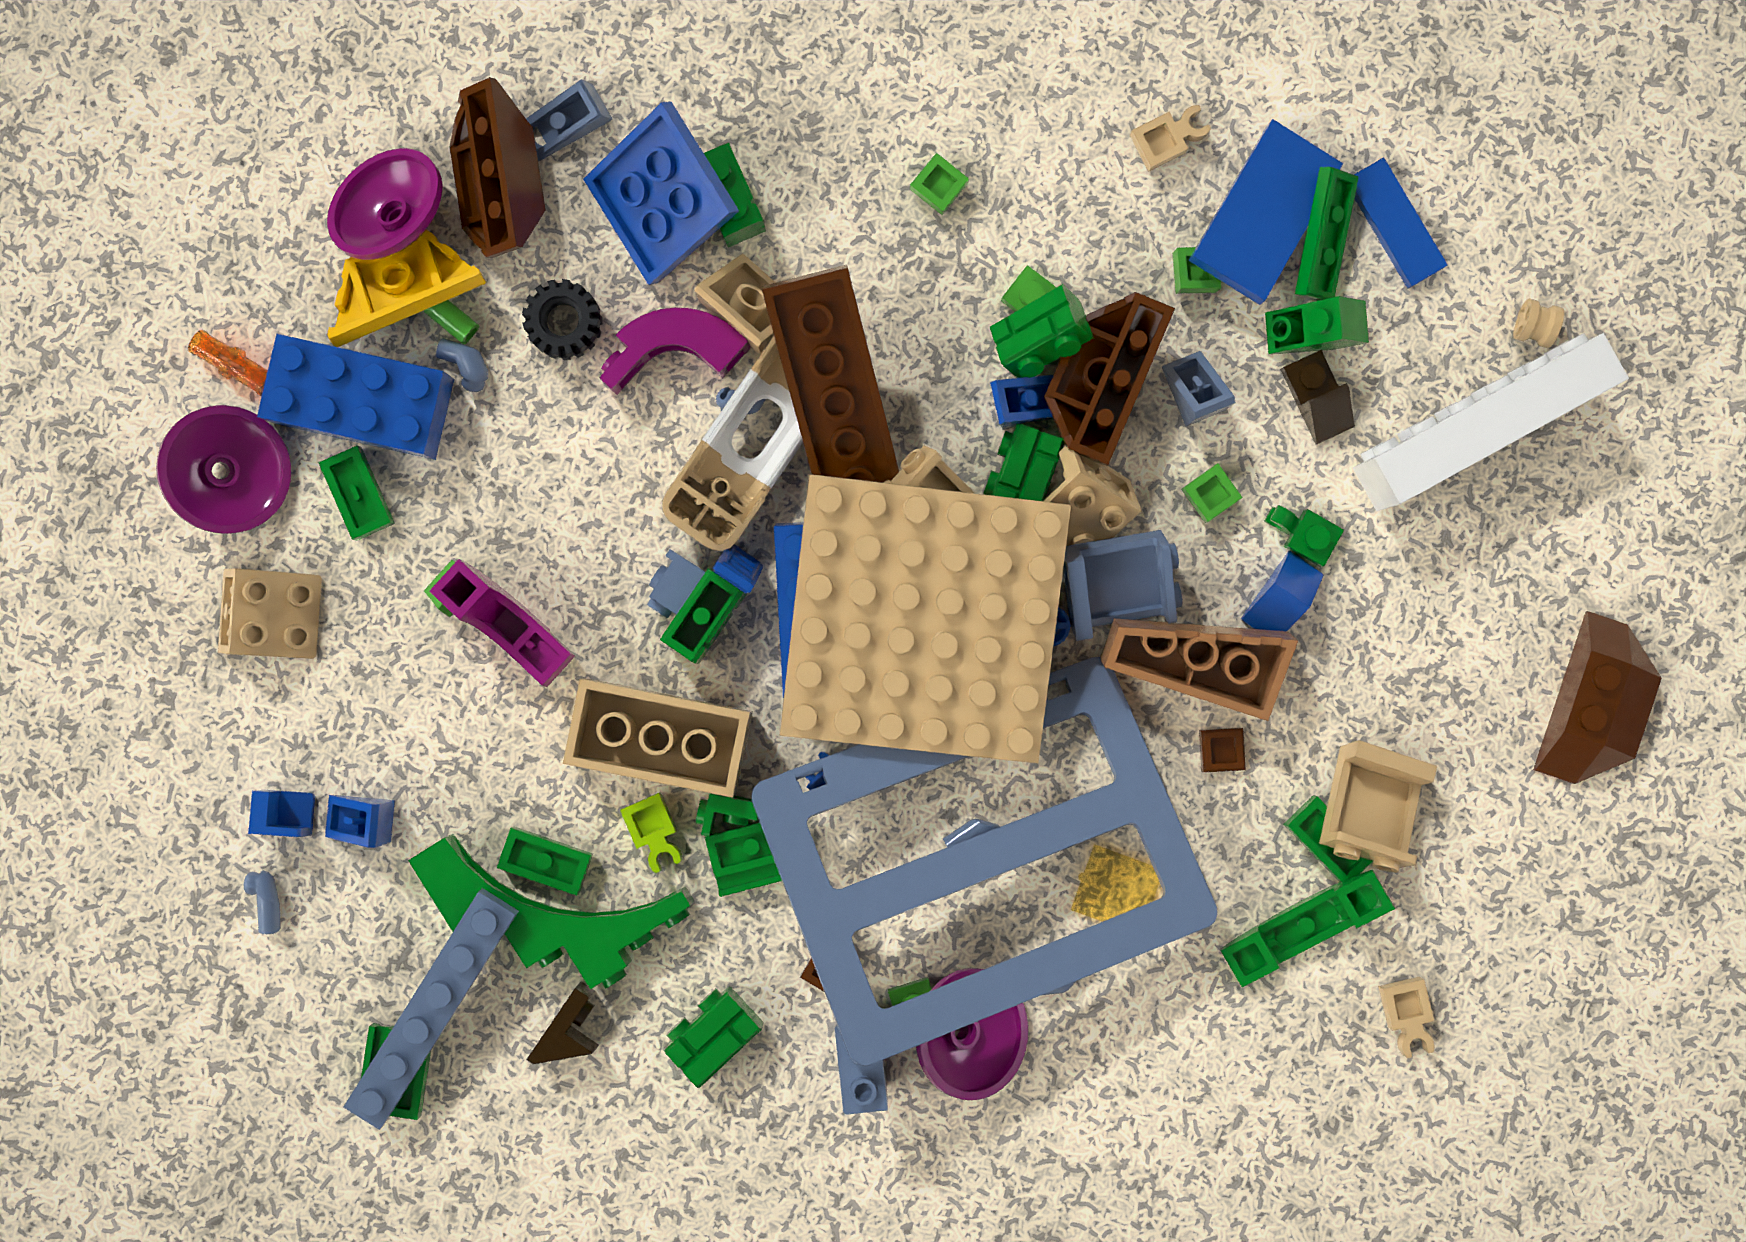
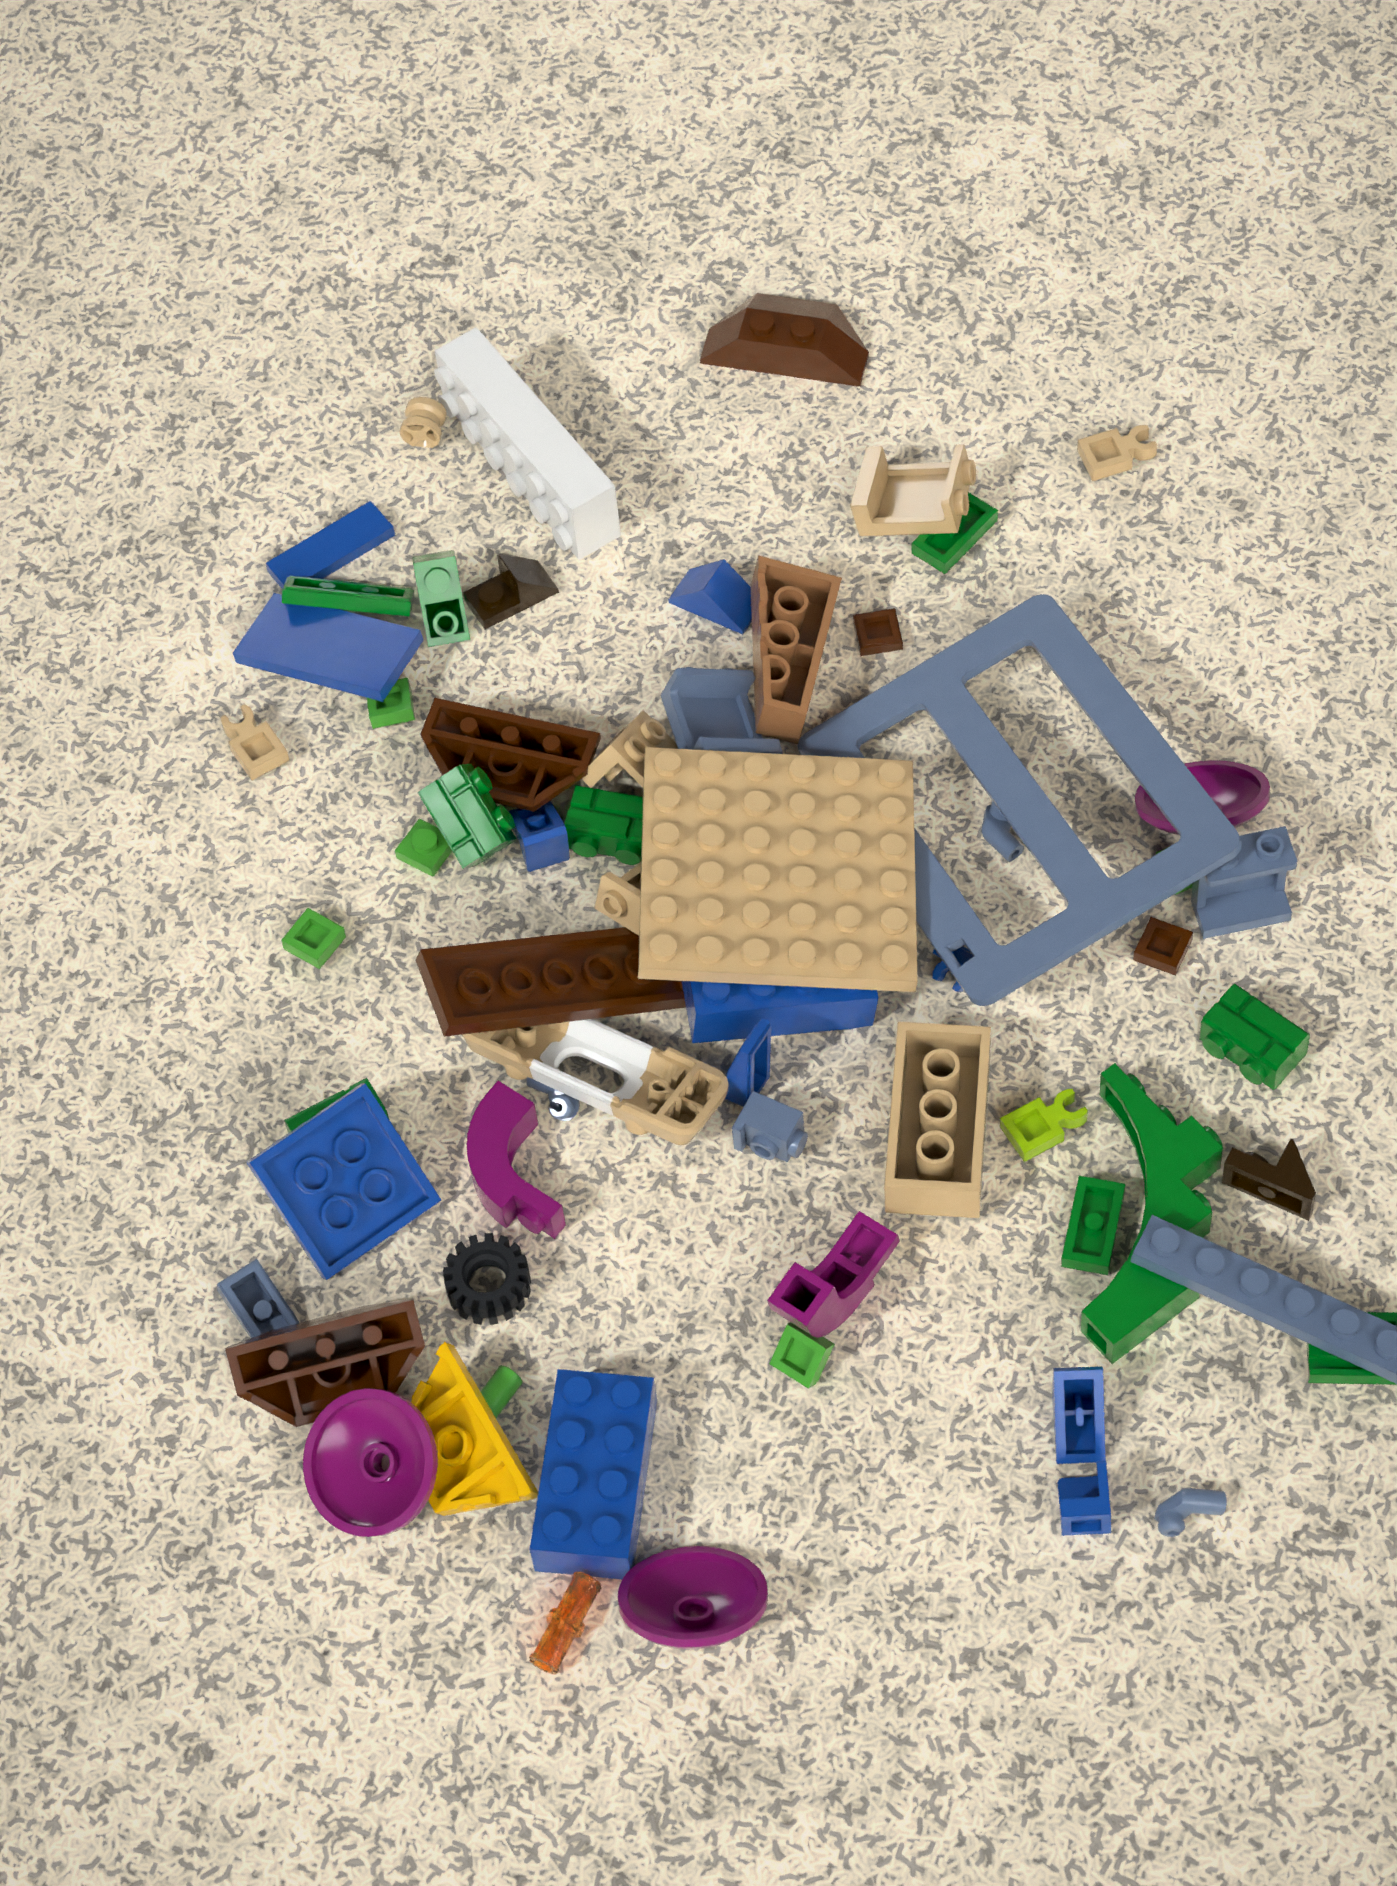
camera: 90 degrees left, 30 degrees down
(269, 613) = (856, 1552): tan bracket -> none
(356, 493) = (704, 1468): green plate -> none
(469, 363) = (539, 1374): sand blue arm -> none
(703, 617) = (803, 1085): green brick -> none
(735, 810) = (1007, 1061): green bracket -> none
(738, 299) = (451, 1098): tan slope -> none
(741, 859) = (1053, 1025): green plate -> none
(1113, 885) = (1033, 706): clear yellow piece -> none
(1197, 388) = (516, 682): sand blue slope -> none
(1211, 493) = (617, 666): bright green plate -> none
(1306, 925) = (1038, 538): green slope -> none
(1308, 535) = (648, 585): green plate -> none

